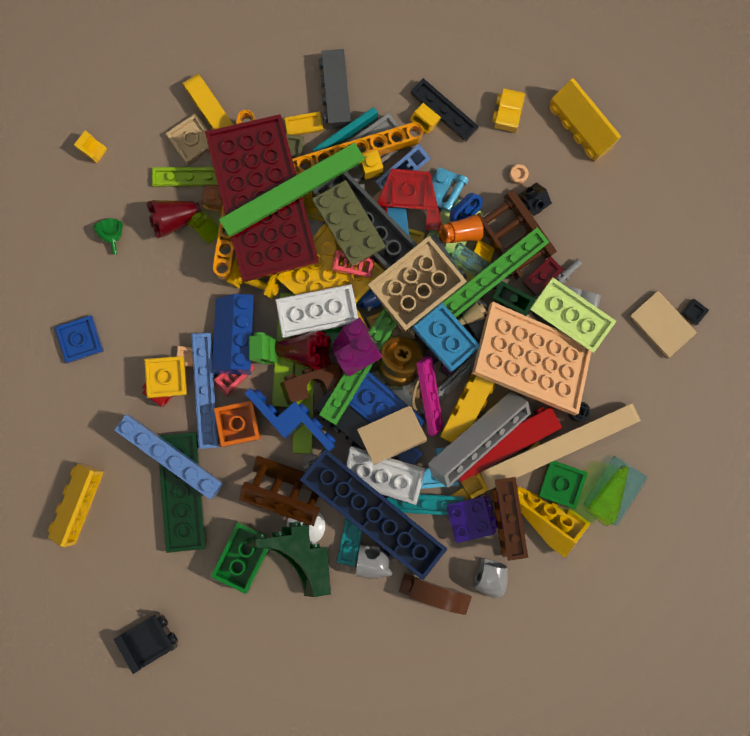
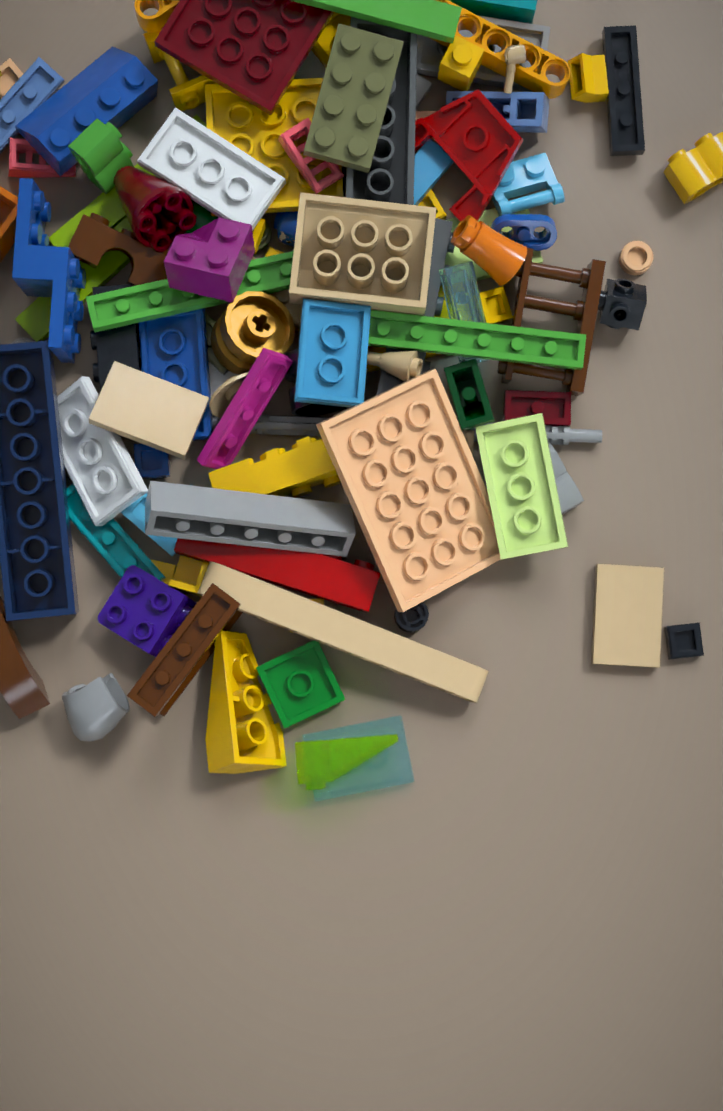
camera: 40 degrees right, 0 degrees up
(392, 141) = (513, 55): none -> tan hand

